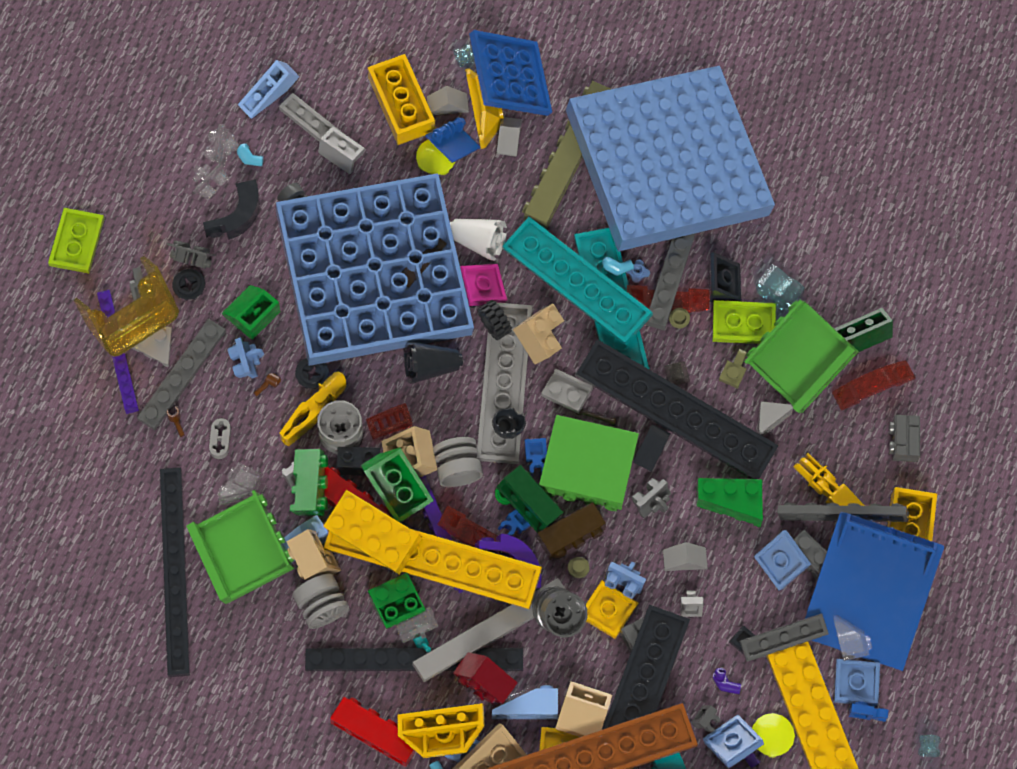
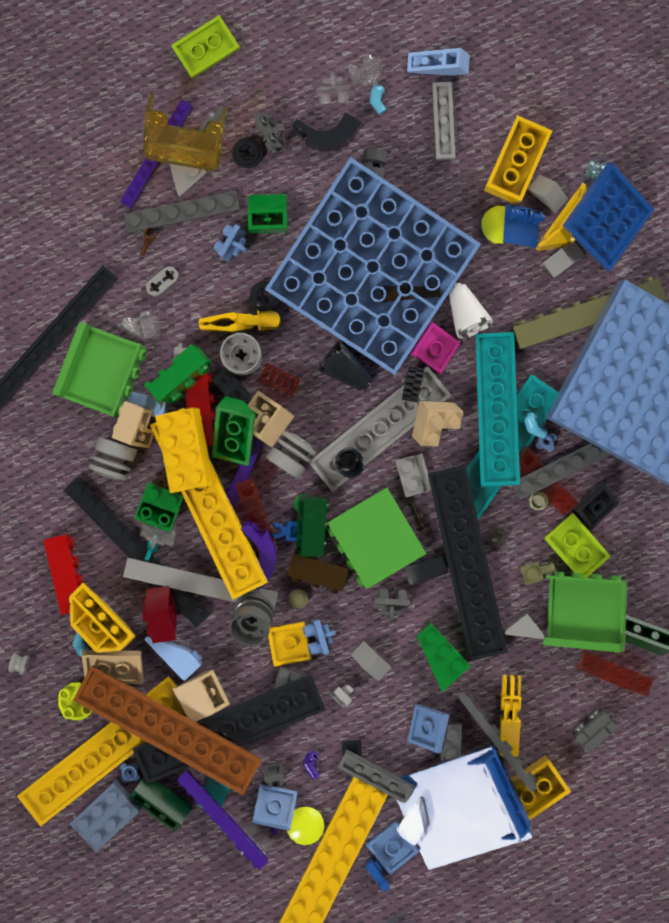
camera: 50 degrees right, 20 degrees up
(271, 379) = (234, 274): reddish brown hand -> none
(340, 149) = (441, 156): light grey panel -> none
(535, 452) = (351, 496): blue plate -> none
(779, 288) = (625, 548): clear light blue brick -> none

